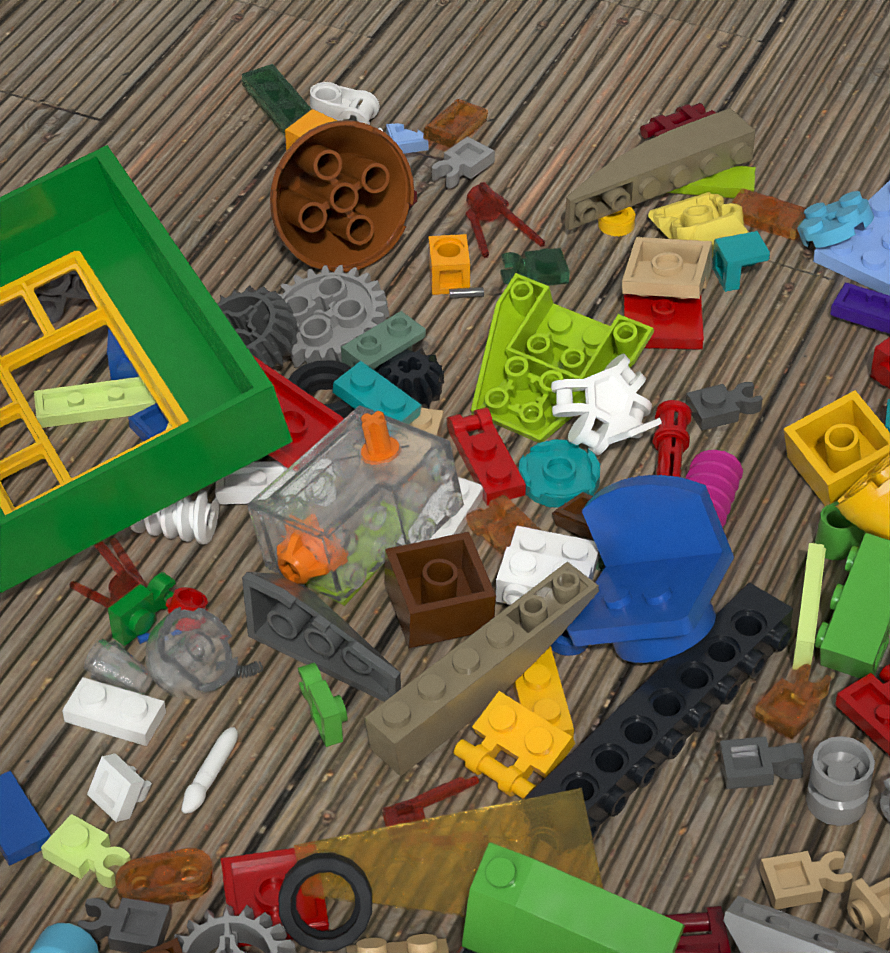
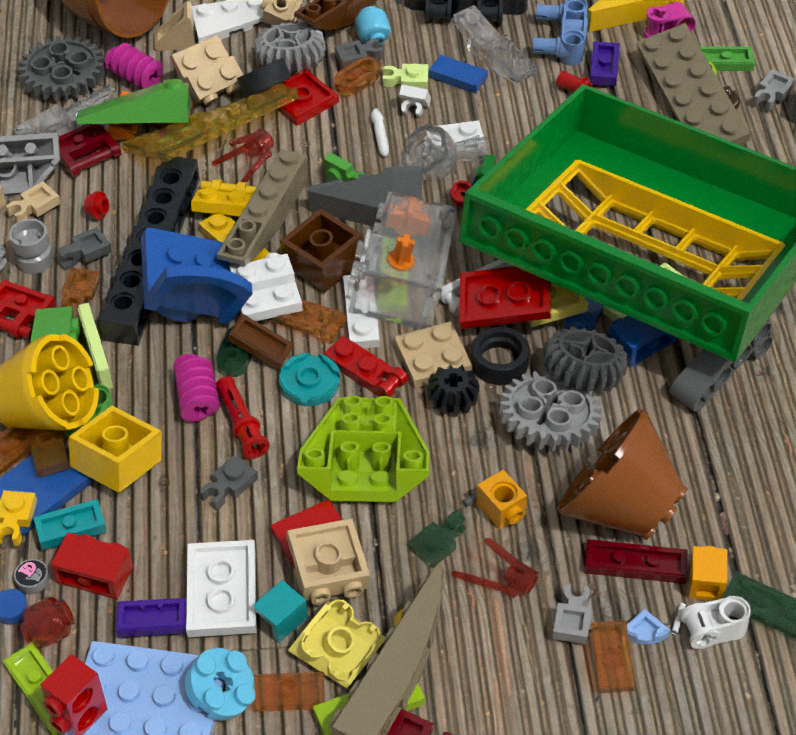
camera: 150 degrees right, 5 degrees up
(371, 390) = (455, 347): teal plate -> none
(383, 341) = (484, 392): sand green bracket -> none
(610, 399) = (289, 414): white piece -> none
(707, 824) = (96, 205): none -> red plate
(787, 306) = (221, 588): none -> white plate

